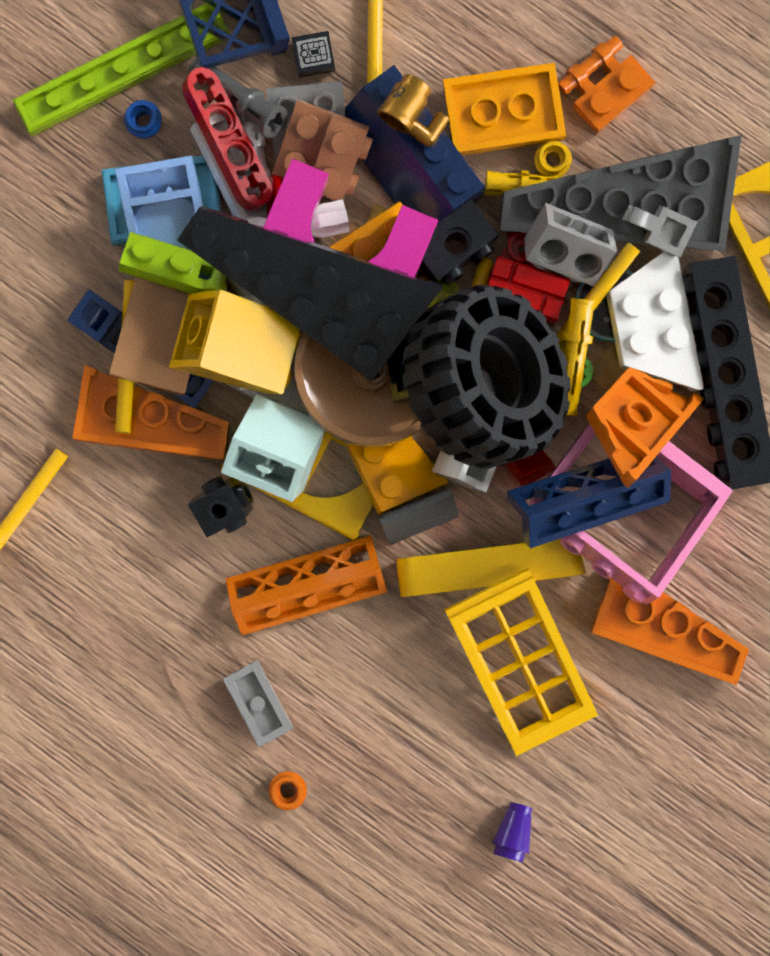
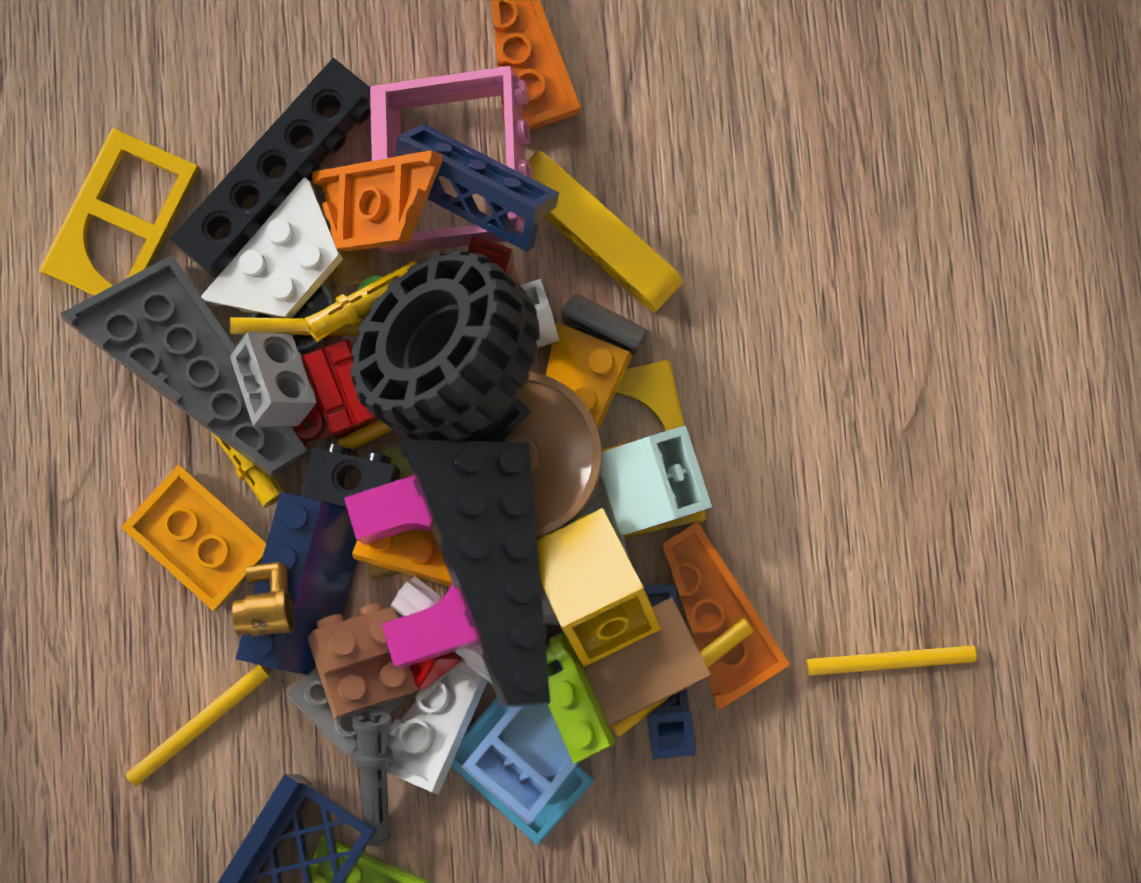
camera: 135 degrees left, 5 degrees down
(137, 110) = (458, 861): blue plate -> none
(221, 141) = (414, 747): red beam -> none
(222, 505) = (737, 488): black brick -> none
(258, 703) = (869, 325): light grey plate -> none
(287, 802) = (923, 236): orange plate -> none
(307, 591) = (749, 358): orange fence -> none
(313, 54) = (280, 746): tile -> none
(490, 600) = (624, 202): yellow piece -> none
(514, 833) = (792, 40): dark purple cone -> none
(557, 149) = (196, 457): yellow plate -> none
(611, 95) = (109, 458): orange plate -> none
(665, 229) = (194, 312): light grey plate -> none

